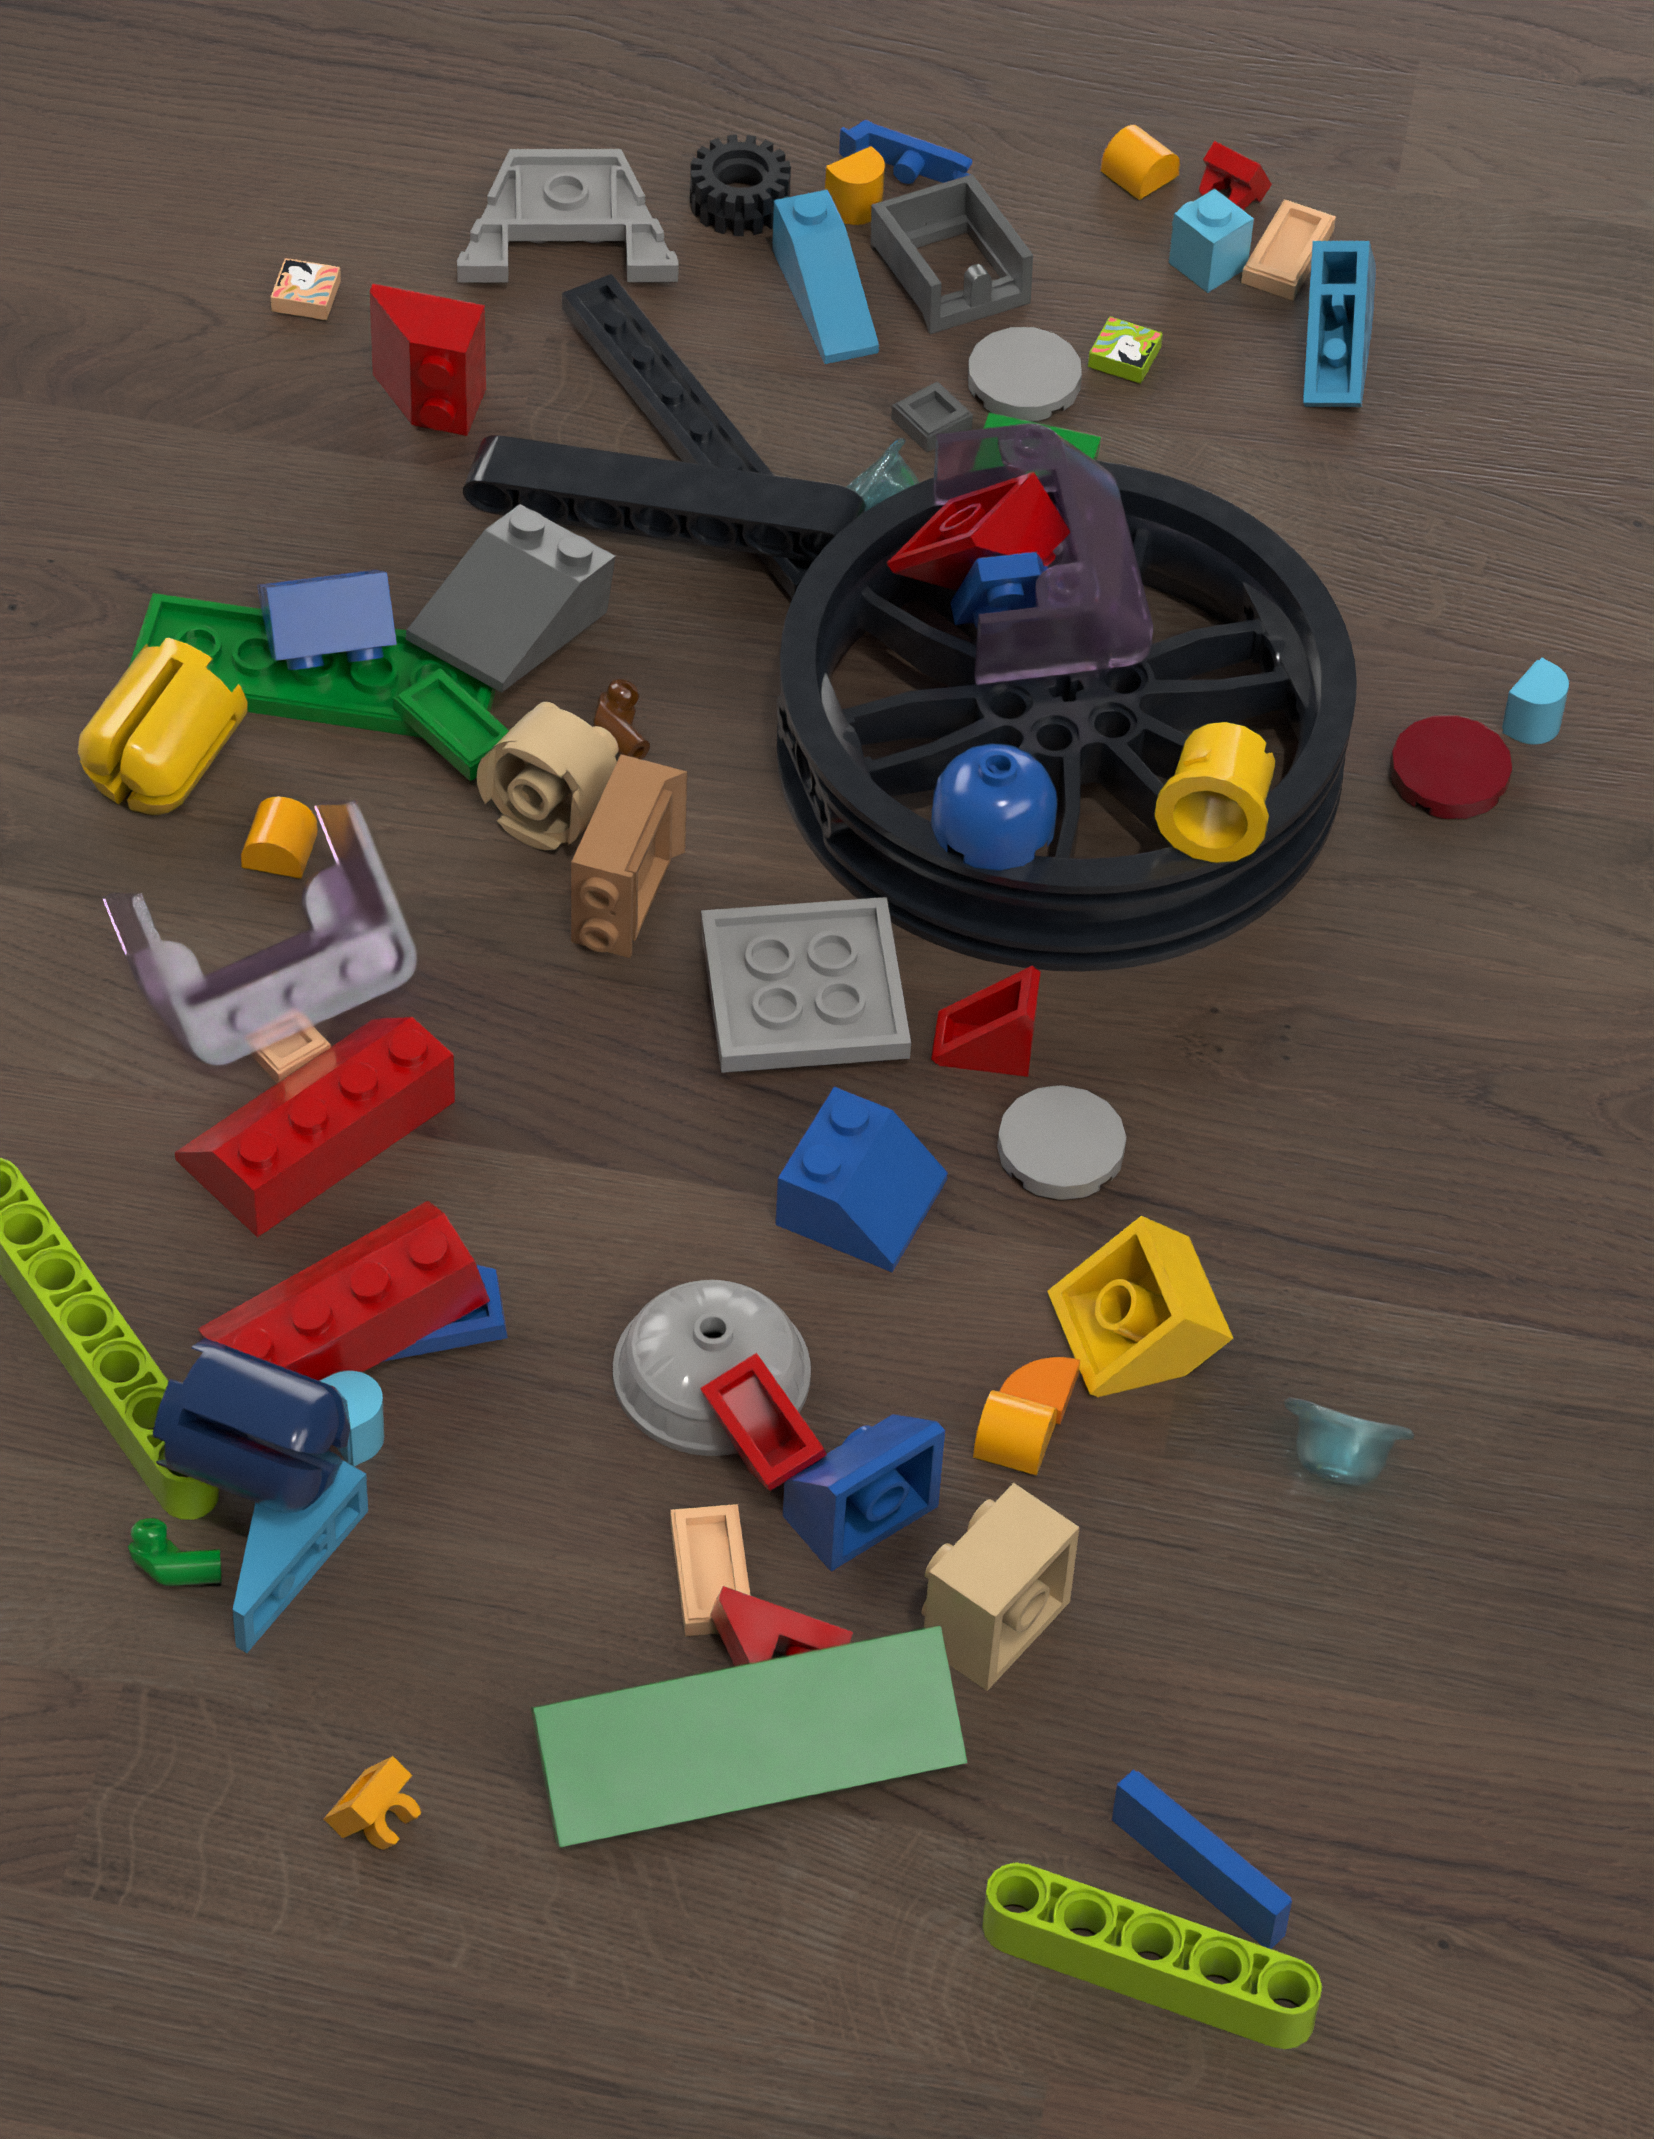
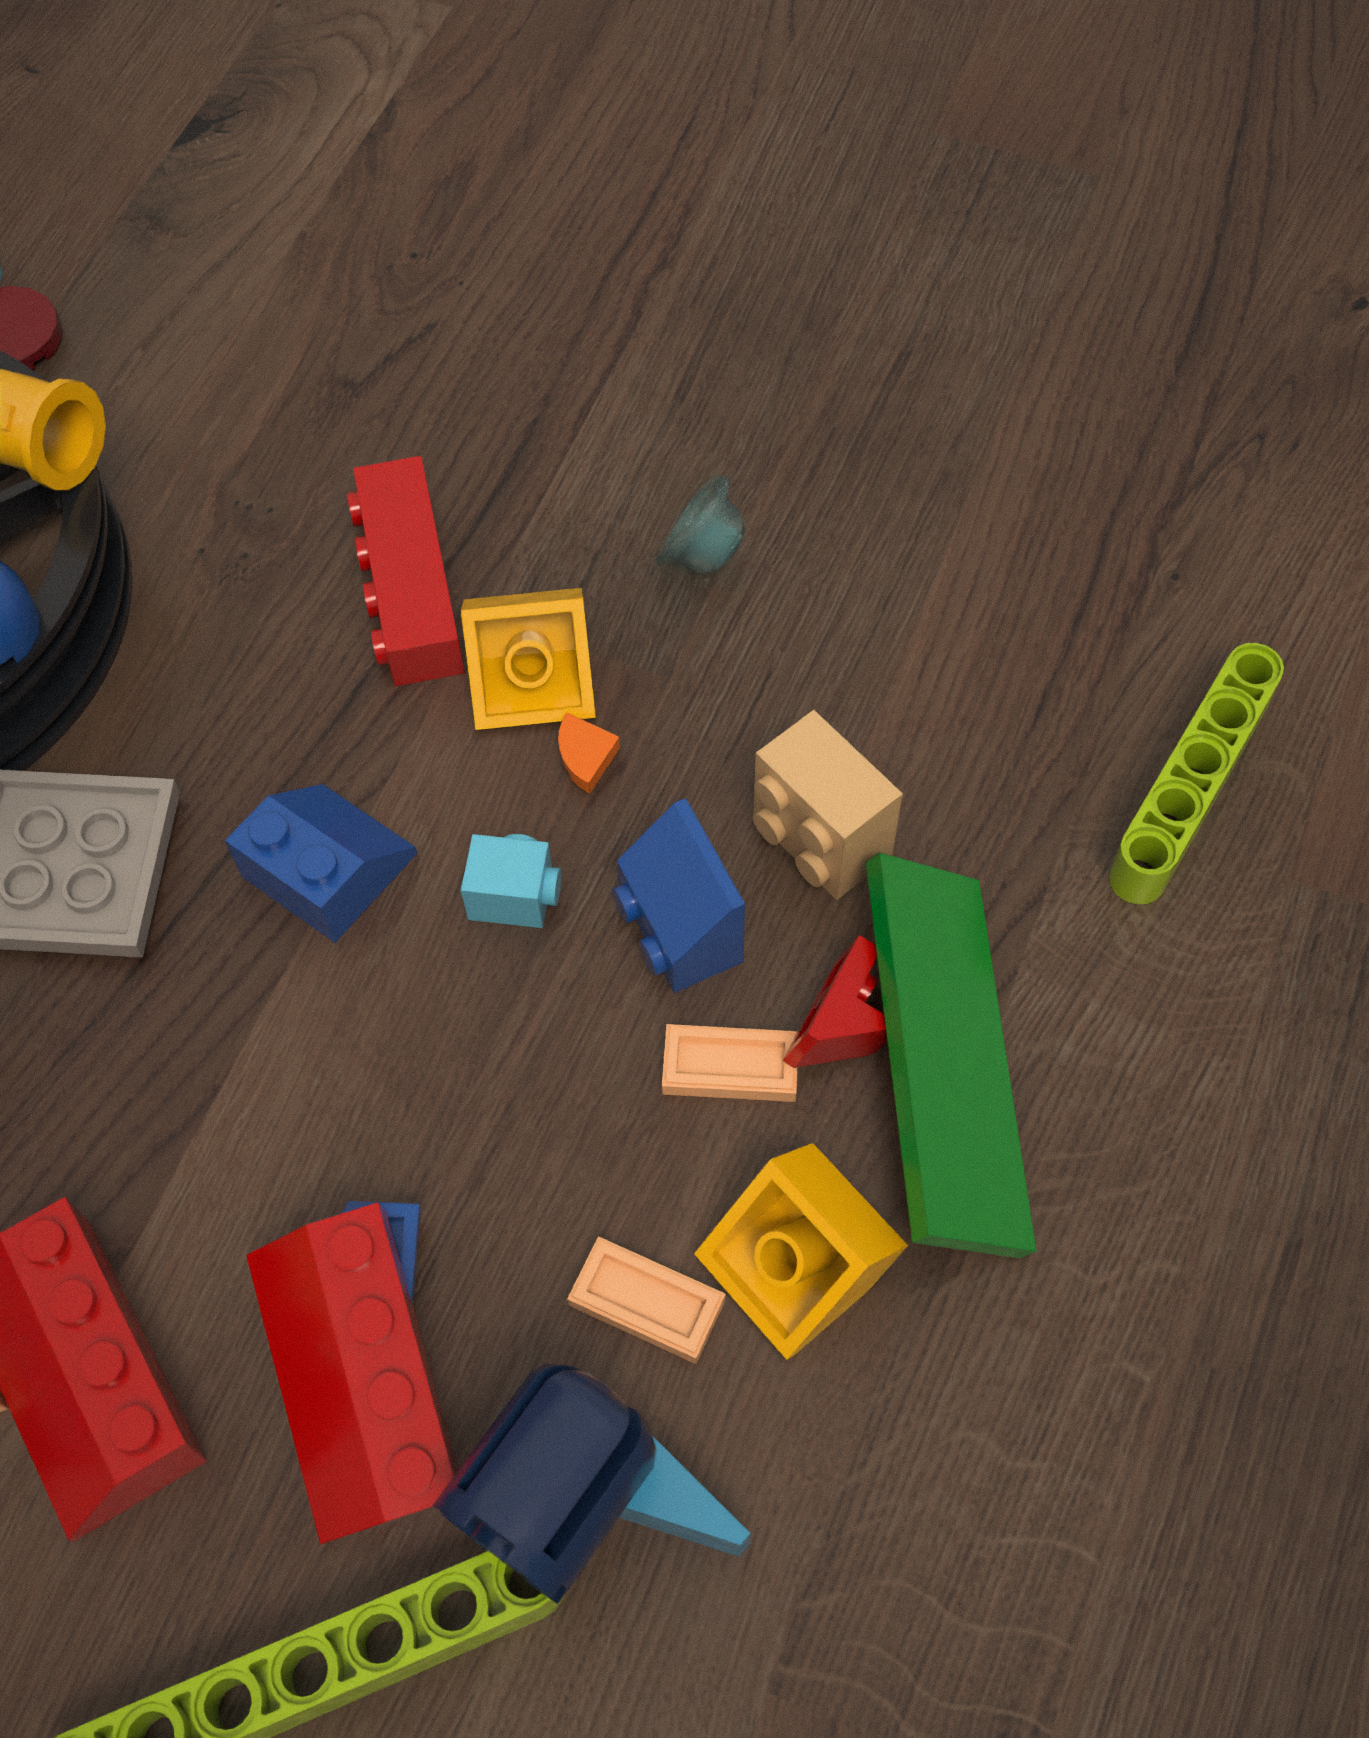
camera: 75 degrees left, 10 degrees up
(167, 1562) = (628, 1620): green arm -> none
(365, 1414) = (484, 1379): medium azure brick -> none
(368, 1801) = (972, 1431): light orange tile -> none
(456, 1535) = (647, 1300): none -> light nougat tile
(526, 1640) = (799, 1248): none -> yellow slope
(668, 1359) = (502, 1057): light grey hat -> none
(762, 1422) = (609, 972): red slope -> none
(865, 1341) = (510, 880): none -> medium azure brick
(991, 1027) = (175, 708): red slope -> none
(1014, 1432) = (630, 777): light orange brick -> none
(1061, 1142) = (316, 687): light grey tile -> none
(1201, 1859) = (1103, 715): blue tile -> none
(1231, 1178) = (407, 572): none -> red brick

